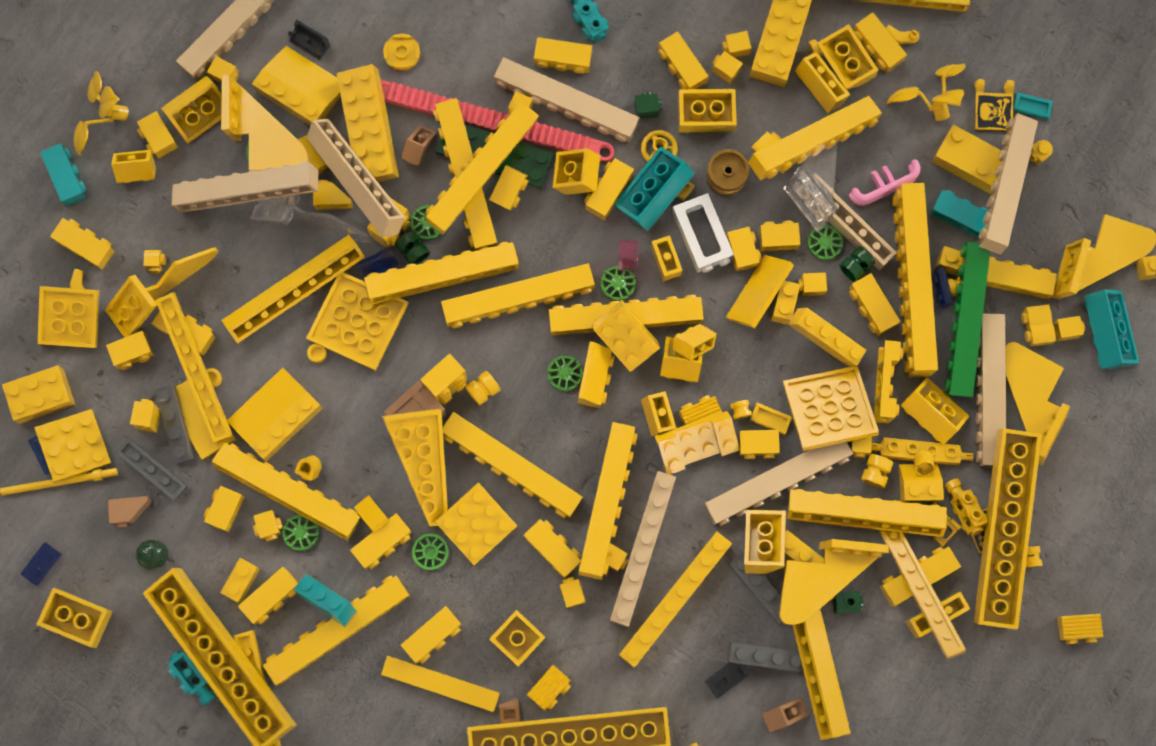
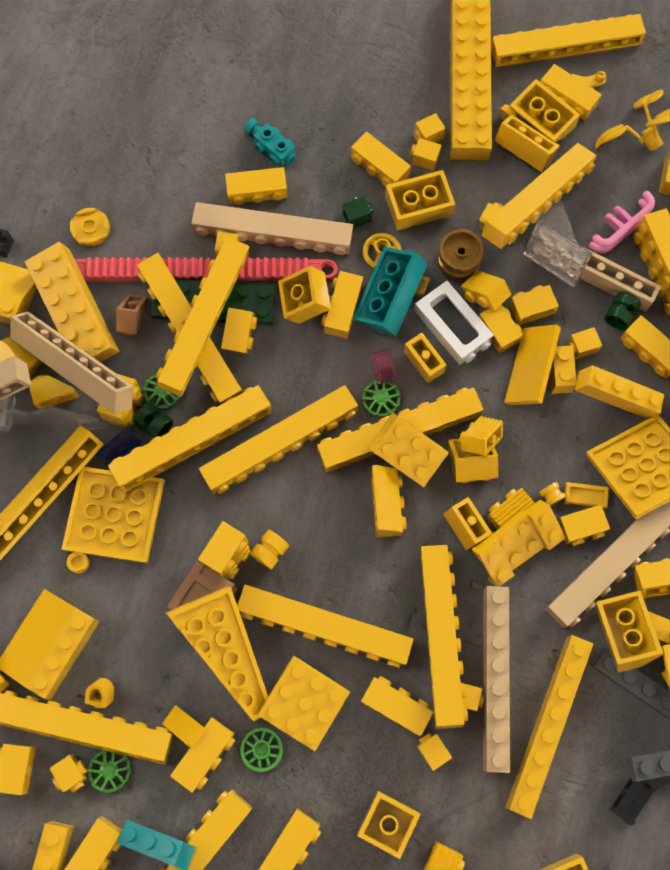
camera: 10 degrees left, 5 degrees down
(565, 373) = (353, 508): bright green wheel -> none
(739, 212) = (485, 290): none -> yellow brick
(825, 243) = (581, 299): bright green wheel -> none

